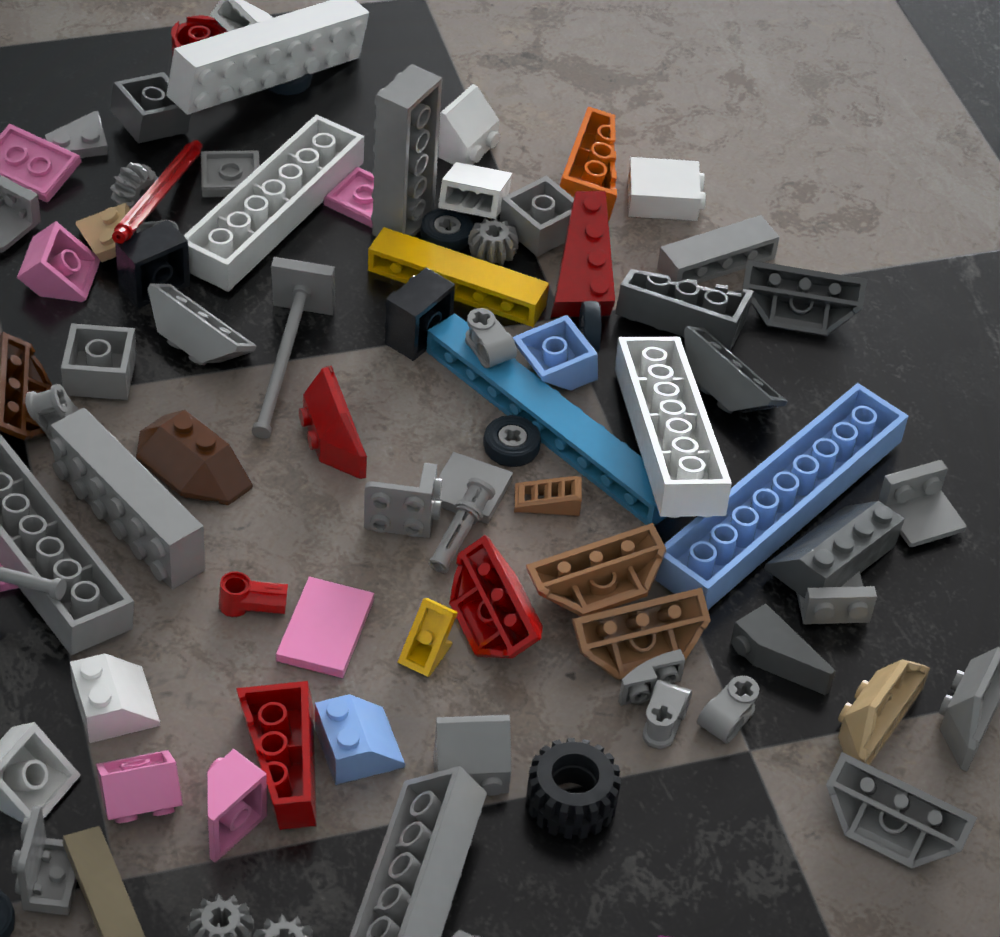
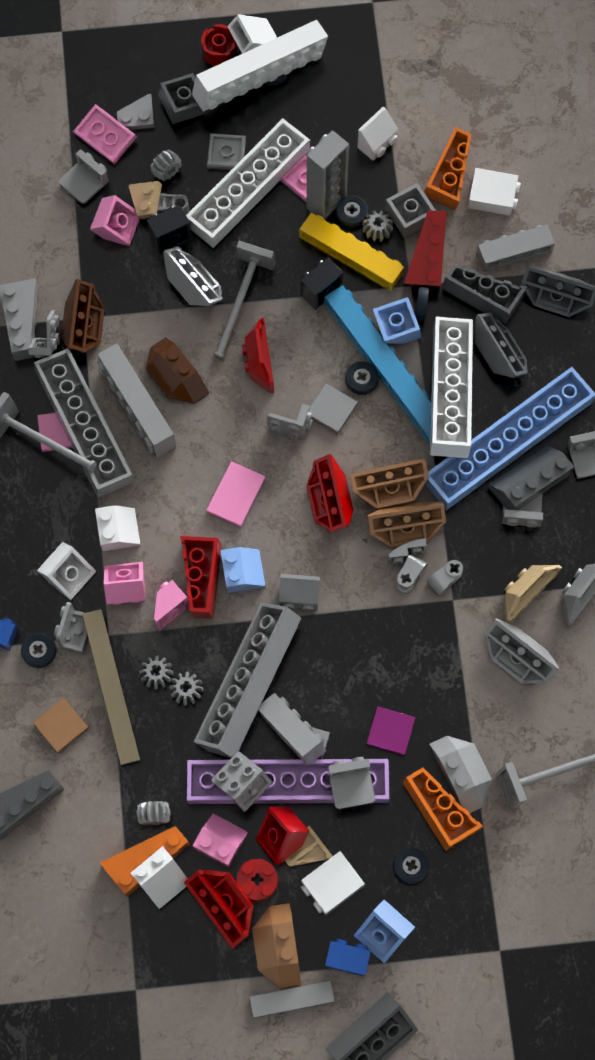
camera: 15 degrees right, 25 degrees up
(49, 407) = (102, 335): light grey piece -> none
(99, 361) = (131, 299): light grey brick -> none
(135, 217) = (178, 174): red piece -> none
(241, 595) = (201, 471): red piece -> none
(428, 637) = (289, 511): yellow slope -> none
(466, 515) = (323, 428): light grey pin -> none
(474, 190) = (372, 186): white brick -> none
(489, 338) = (358, 314): light grey piece -> none
(566, 488) = (373, 426): medium nougat slope -> none
(569, 811) = (355, 601): black tyre -> none
(779, 650) = (481, 540): dark grey slope -> none

